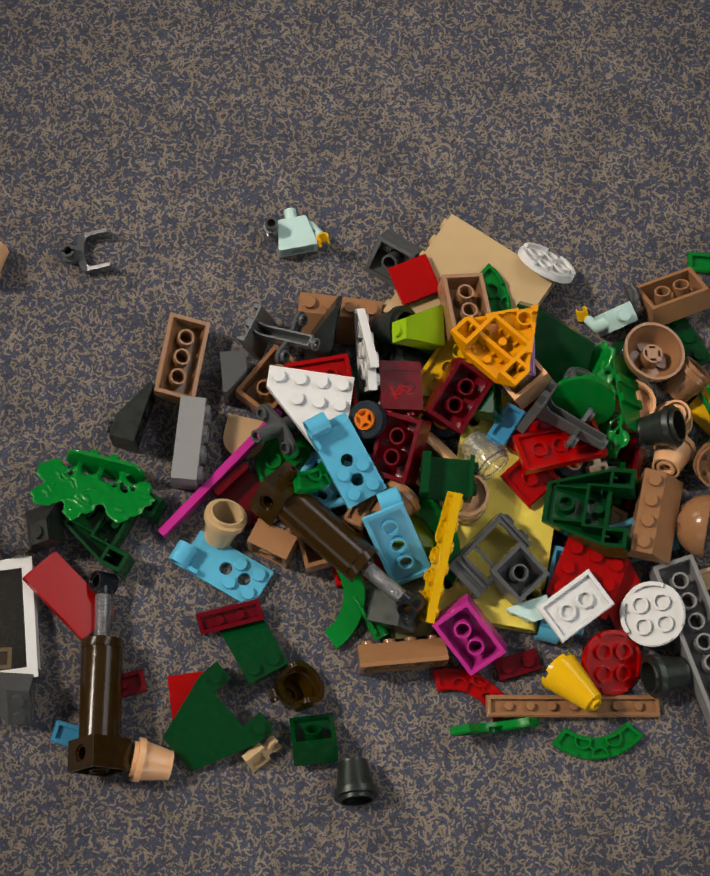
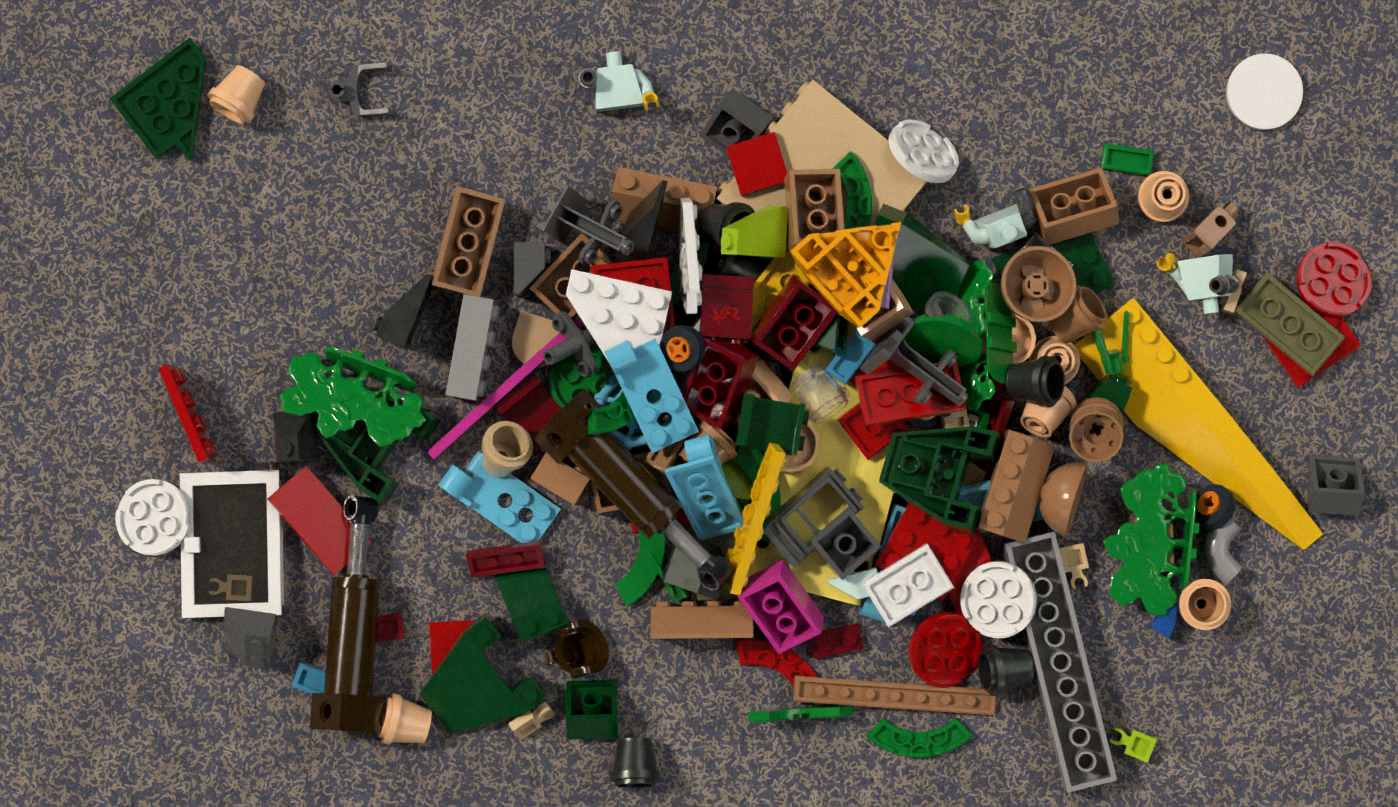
camera: 15 degrees right, 15 degrees up
(571, 682) = (895, 673): yellow cone -> none

